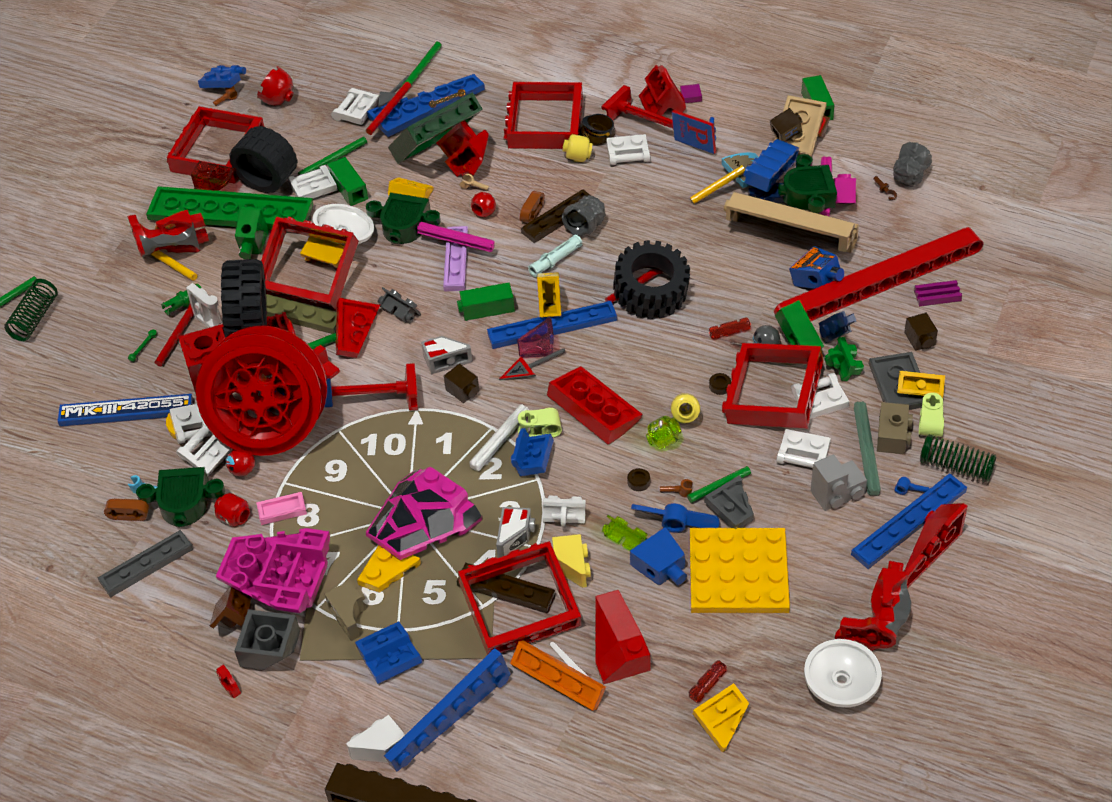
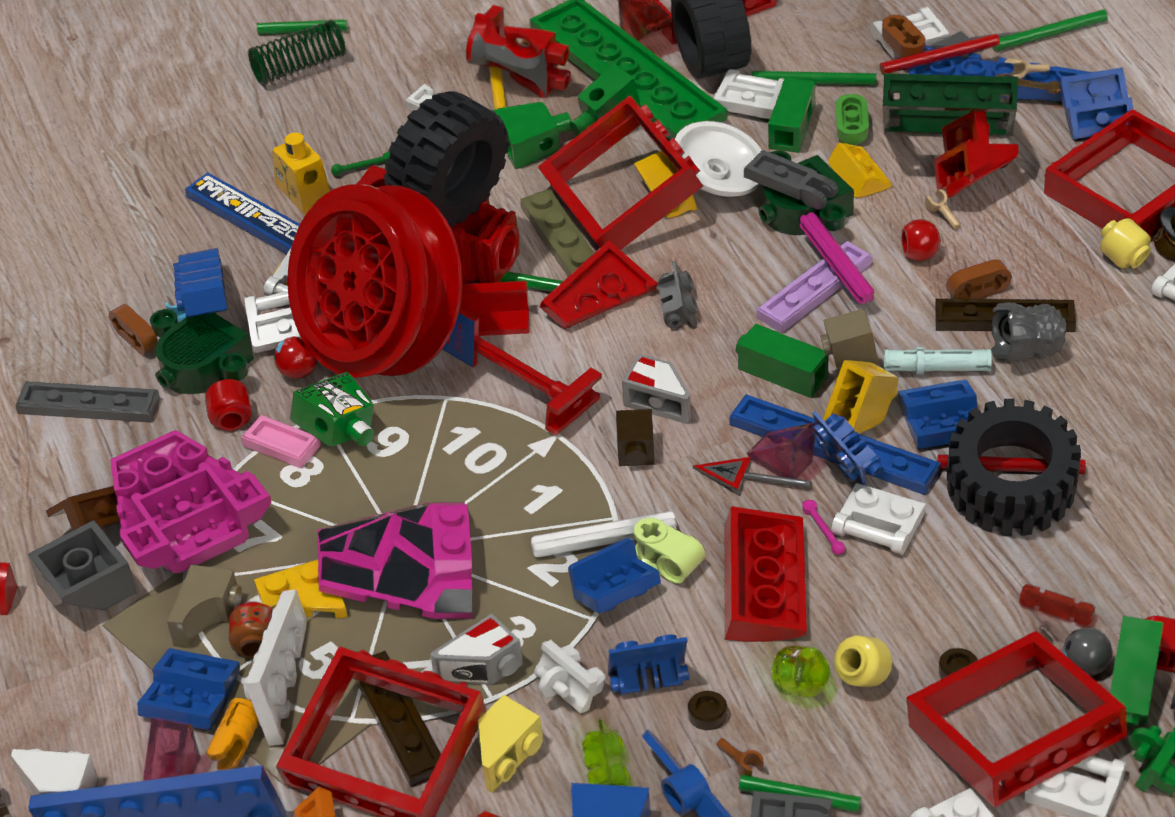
camera: 45 degrees right, 5 degrees down
(122, 370) = (299, 172): none -> yellow torso
(135, 293) = (413, 101): none -> white tile
(145, 458) = (199, 283): none -> blue brick
(209, 271) = (532, 132): none -> green torso
(300, 472) = (334, 411): none -> green torso
(361, 109) = (902, 35): none -> dark orange beam
(378, 166) = (852, 119): none -> bright green plate
(388, 601) = (247, 627): none -> dark orange head
(397, 211) = (791, 179): none -> dark grey hinge
(424, 686) = (170, 750): none -> clear pink slope
(425, 605) = (275, 666): none -> white wing
(438, 91) = (1021, 68): none -> tan hand
(441, 653) = (233, 734): none -> light orange hinge
(489, 89) = (1094, 100): none -> blue slope
(519, 269) = (849, 338): none -> dark tan arch
(575, 361) = (810, 508): none -> dark pink hinge
(577, 324) = (836, 437): none -> blue hinge
(584, 278) = (935, 411): none -> blue slope
(596, 479) = (629, 657): none -> blue hinge
(612, 343) = (879, 517): none -> white plate

